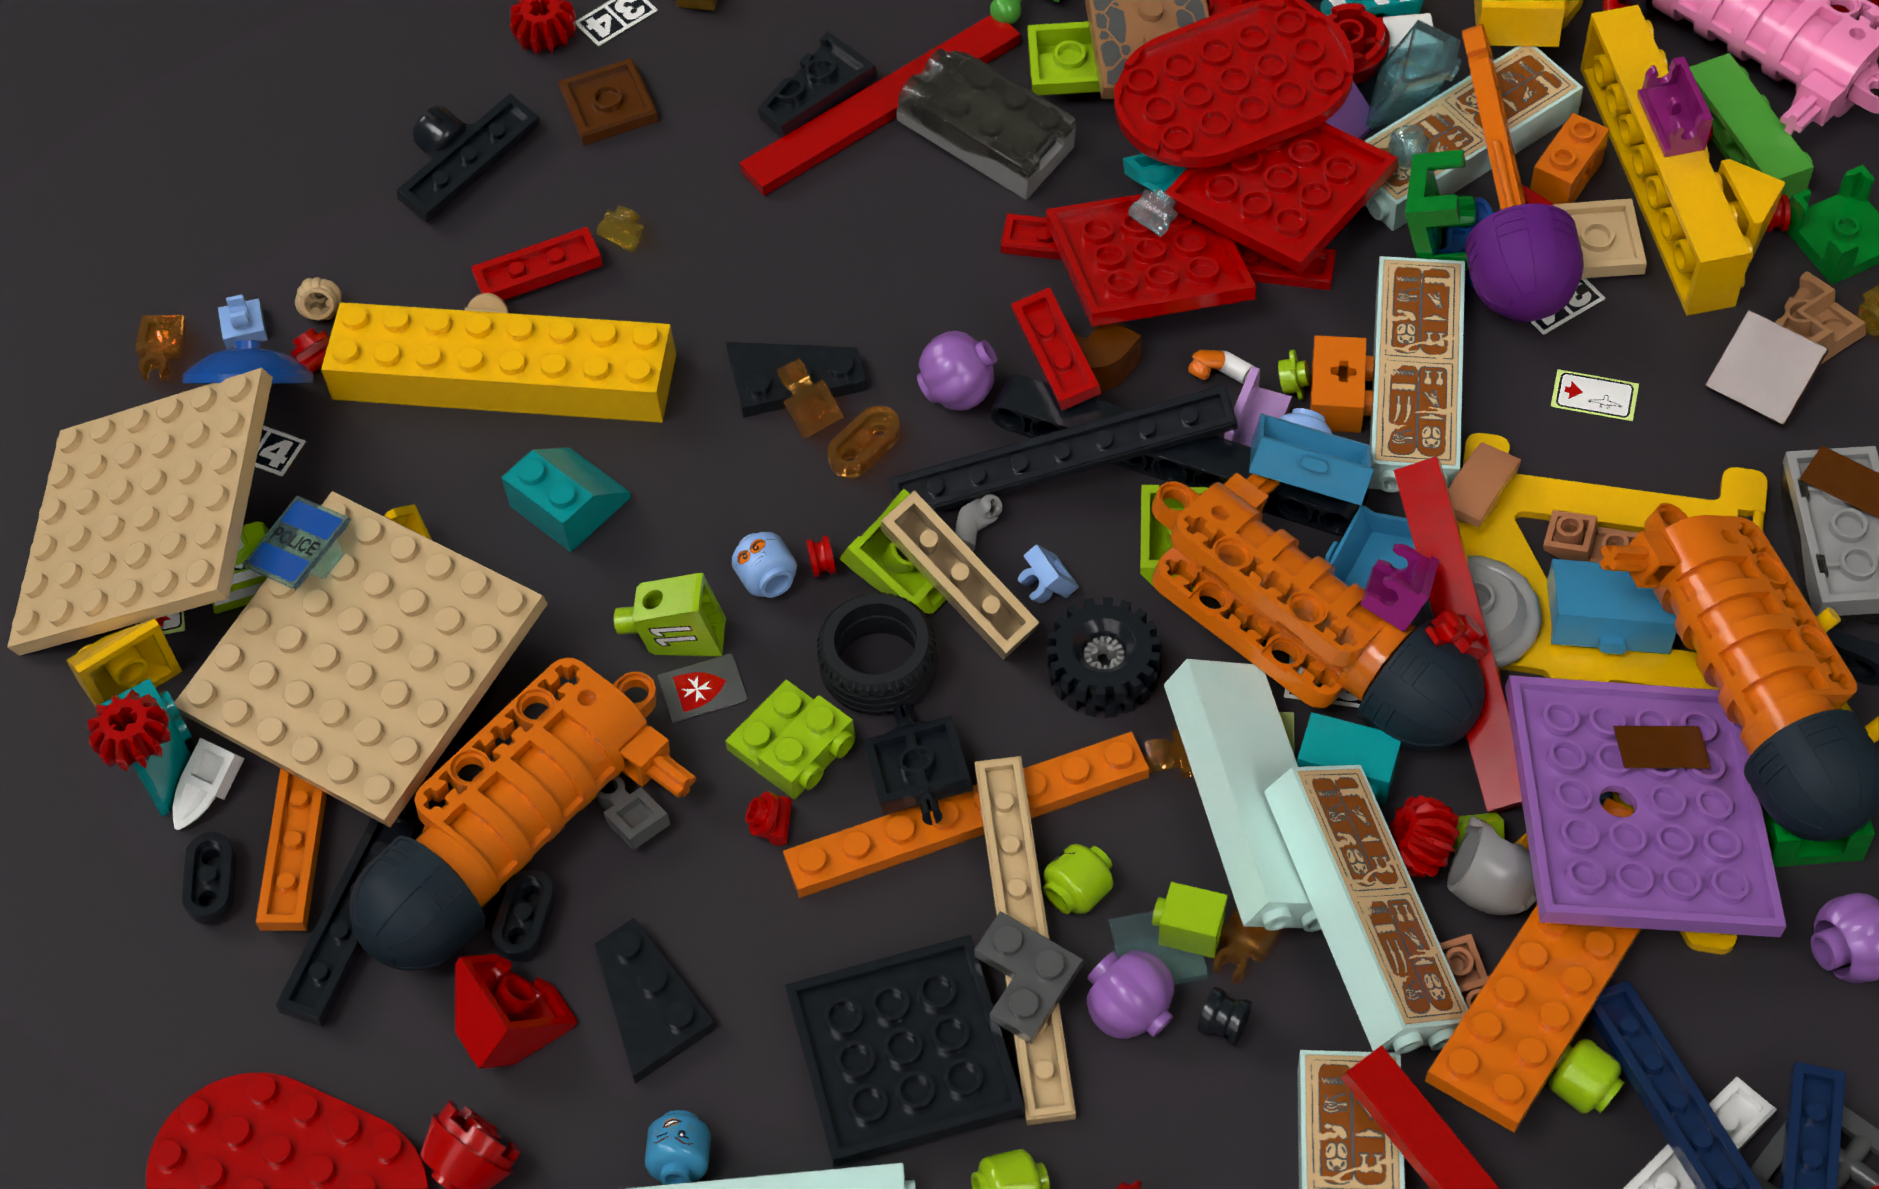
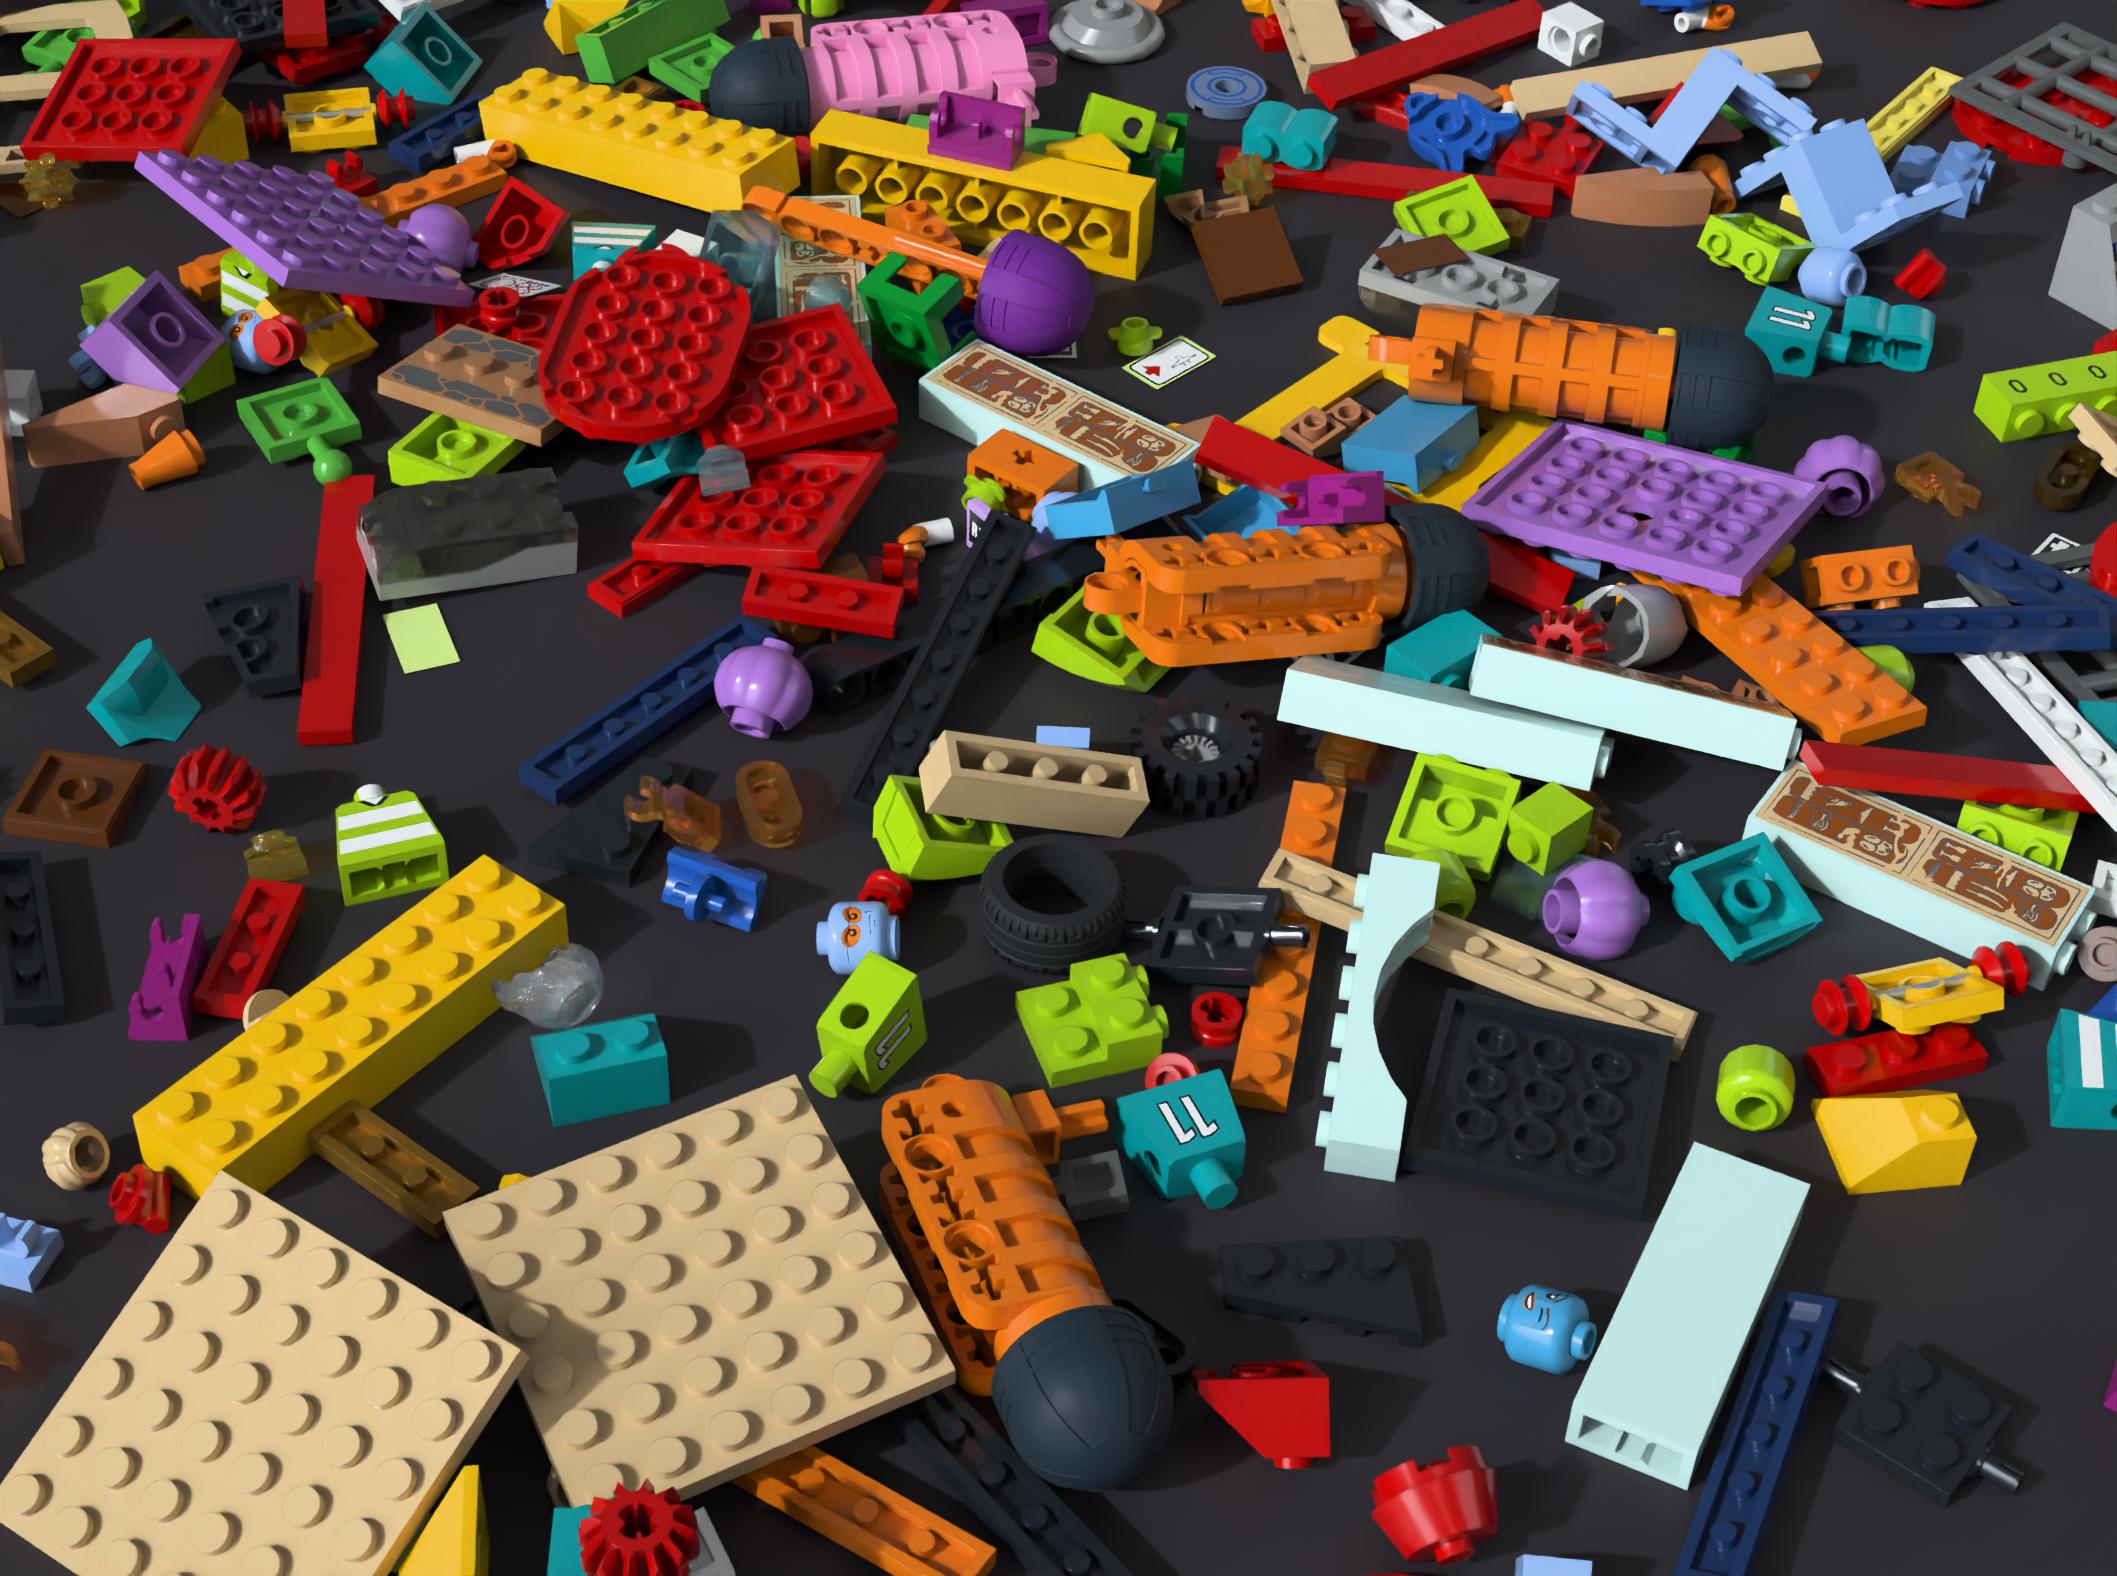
camera: 65 degrees left, 15 degrees down
(245, 358) = (134, 1238): blue dish -> none
(299, 544) = (500, 1262): piece -> none
(410, 450) = (392, 1166): none -> pearl gold plate
(480, 248) = (174, 967): none -> magenta hinge
(599, 436) = (556, 993): none -> clear hair
(642, 160) = (217, 789): none -> red gear
(668, 270) = (387, 846): none -> lime torso
(702, 687) = (958, 1056): dark grey sticker -> none
(710, 71) = (144, 698): none -> teal slope
(714, 849) = (1185, 1138): none -> teal torso
(748, 460) = (713, 889): none -> blue hips
(845, 796) = (1213, 1033): none -> red bush
(890, 163) = (420, 638): none -> yellowish green sticker
(898, 321) = (636, 715): none -> dark blue plate
(980, 861) = (1368, 1107): none -> light aqua arch
(1038, 971) = (1534, 949): dark grey plate -> none
(1162, 847) = (1455, 811): none -> lime plate
(1163, 374) = (895, 571): none -> red tile
(1214, 1091) = (1744, 899): none -> teal slope
(1457, 630) = (1409, 490): red plate -> none
(1595, 355) = (1135, 336): none -> lime plate
(1661, 747) = (1597, 467): reddish brown sticker -> none
(1710, 1010) = (1860, 577): none -> orange brick
(1831, 187) = (1108, 117): none -> lime torso

